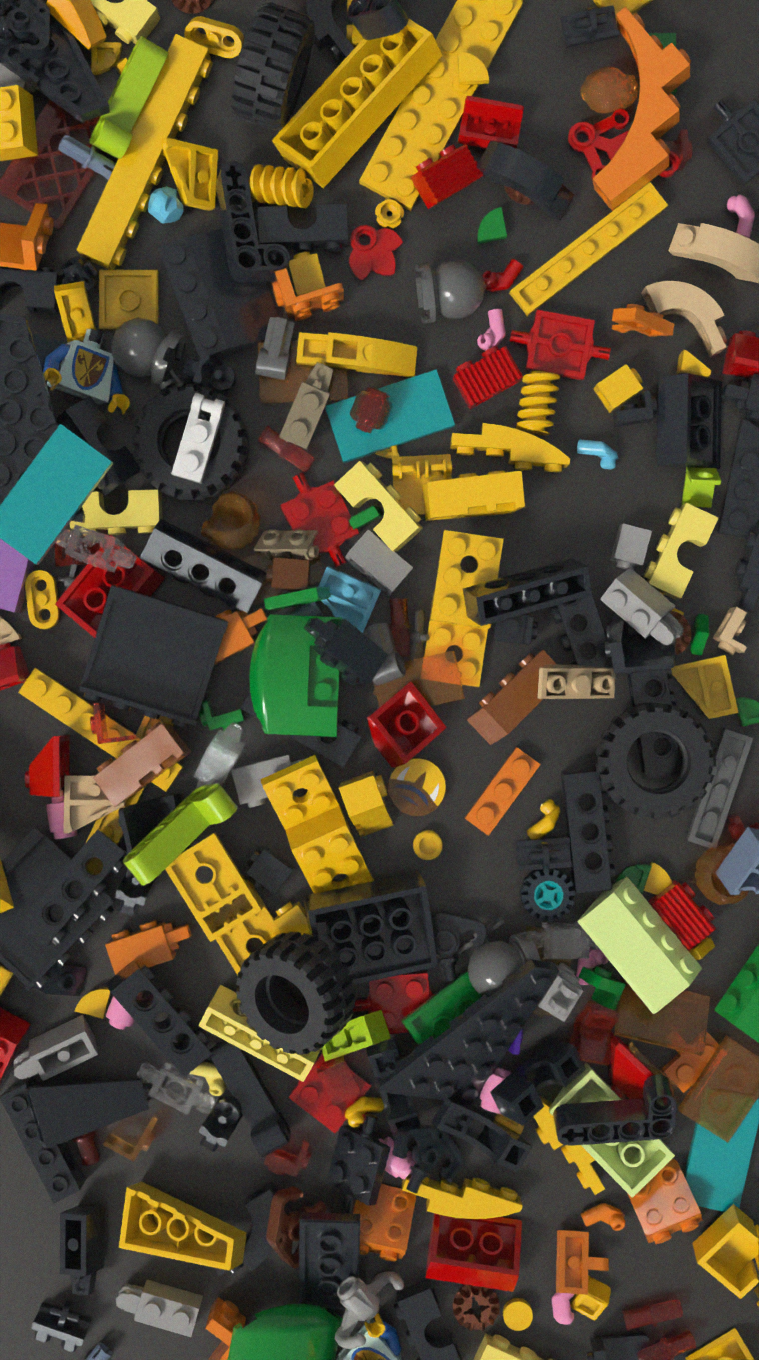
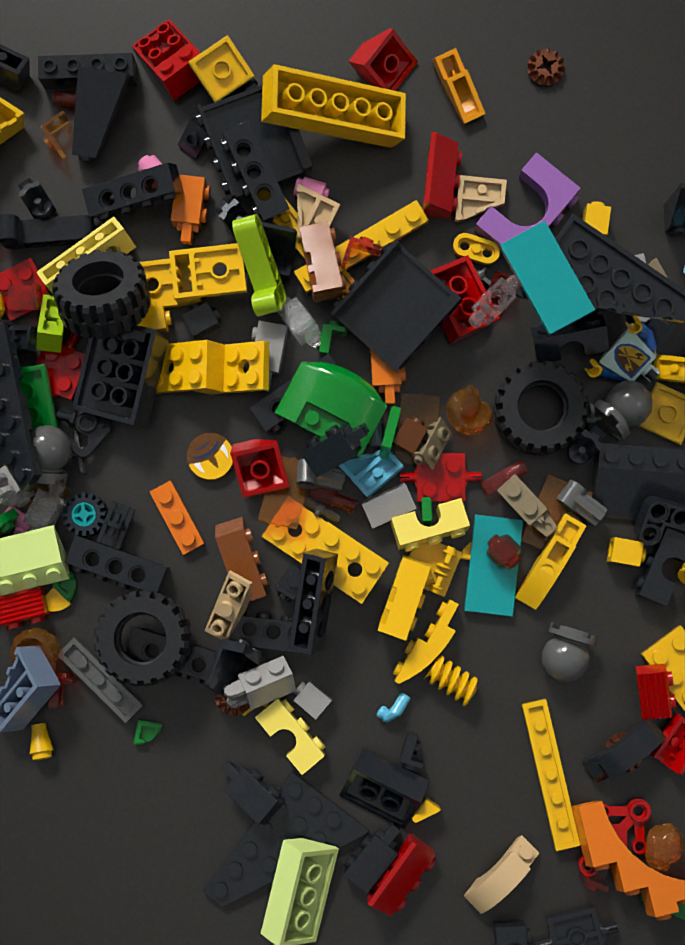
camera: 120 degrees right, 5 degrees down
(49, 768) = (351, 197): red slope -> none
(56, 1050) = (145, 109): light grey hinge -> none
(94, 1003) = (166, 151): yellow tile -> none
(142, 513) = (506, 350): light yellow arch -> none
(197, 551) = (443, 386): black brick -> none
(198, 439) = (540, 412): white plate -> none
(204, 1102) = (76, 171): clear piece -> none
(212, 1076) = (79, 209): light yellow arm -> none
(302, 306) = (604, 537): orange bracket -> none
(365, 803) = (217, 411): yellow wedge -> none
(376, 255) = (619, 611): red plate -> none
(392, 206) = (651, 633): yellow plate -> none
(427, 845) = (164, 444): yellow tile -> none
(487, 376) = (489, 651): red brick -> none
(492, 227) = (600, 709): green tile -> none
(496, 331) = (519, 673): bright pink arm -> none
(502, 280) = (557, 697): red arm -> none
(548, 822) = (137, 539): yellow arm -> none
(560, 344) = (488, 718): red plate -> none
(619, 387) = (435, 747): yellow brick -> none
(641, 321) = (481, 783): orange plate -> none
(691, 303) = (474, 832): tan arch -> none
(700, 486) = (332, 773): lime bracket -> none
(701, 635) = (221, 721): green tile -> none
(708, 685) = (181, 708): yellow wing -> none
(730, 626) = (216, 745): tan bracket -> none
(744, 212) = (523, 908): bright pink arm -> none

